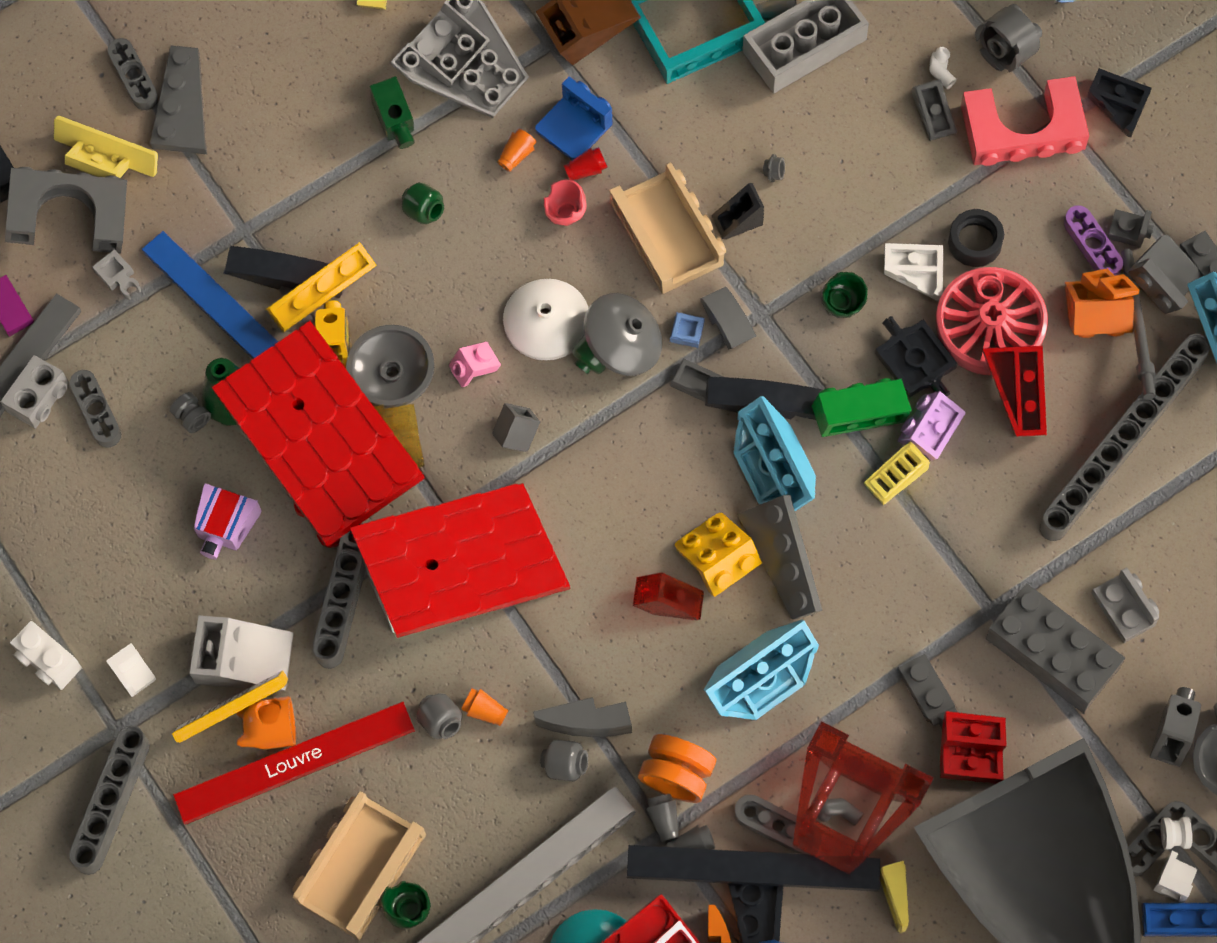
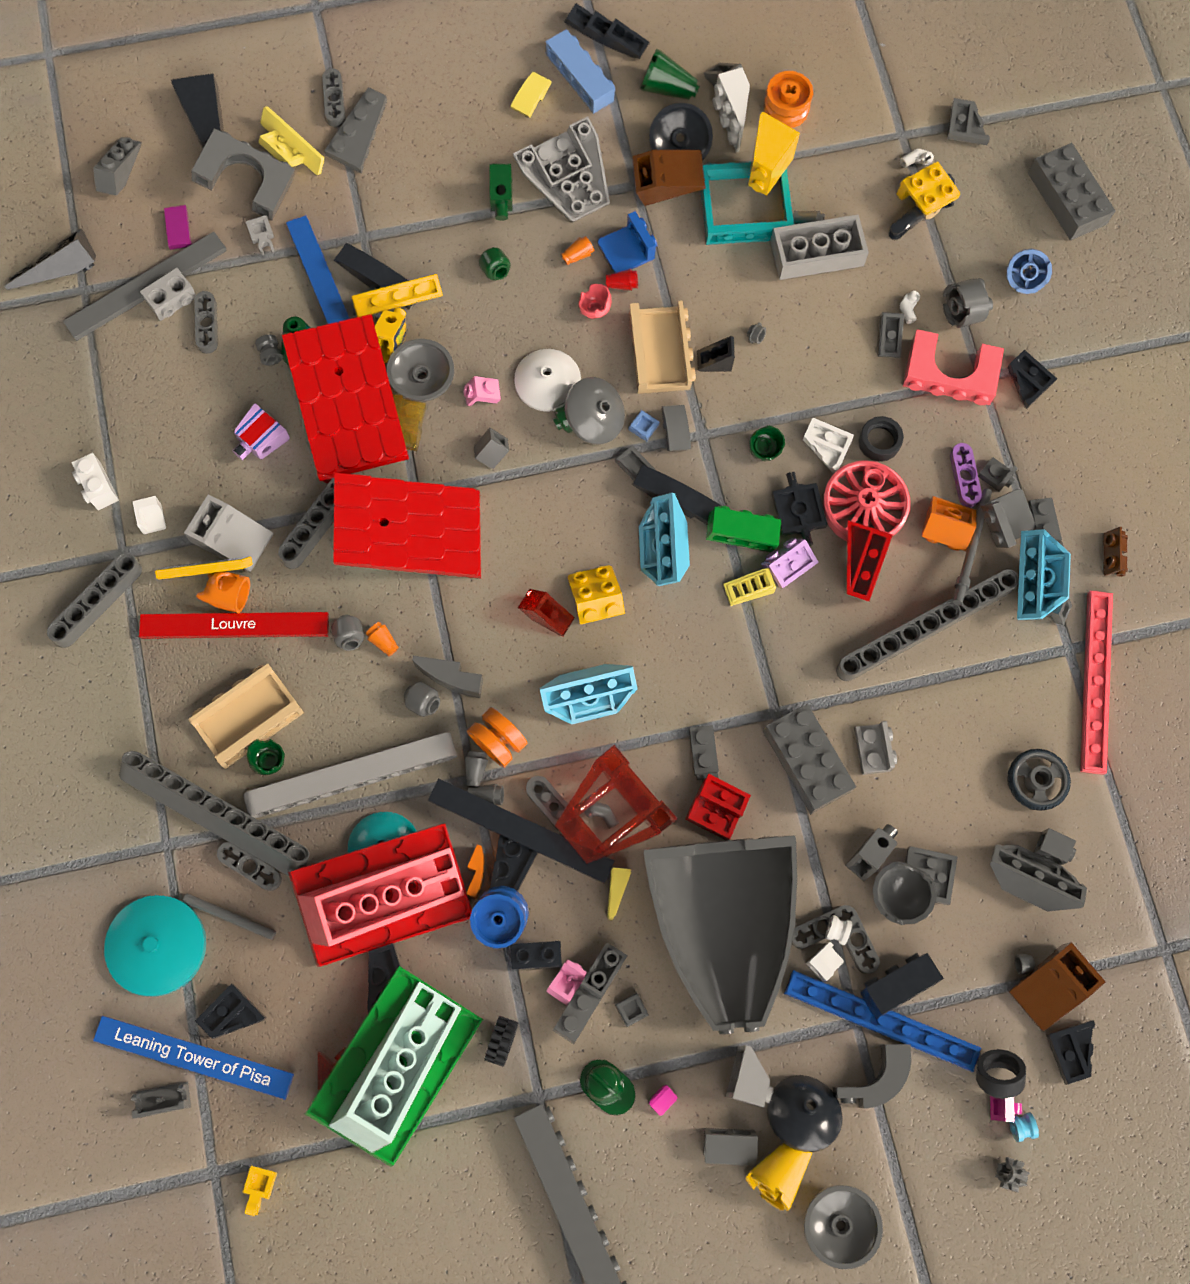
camera: 15 degrees right, 5 degrees up
(783, 554) = (641, 607): dark grey wing -> none
(1107, 285) = (961, 509): orange slope -> none

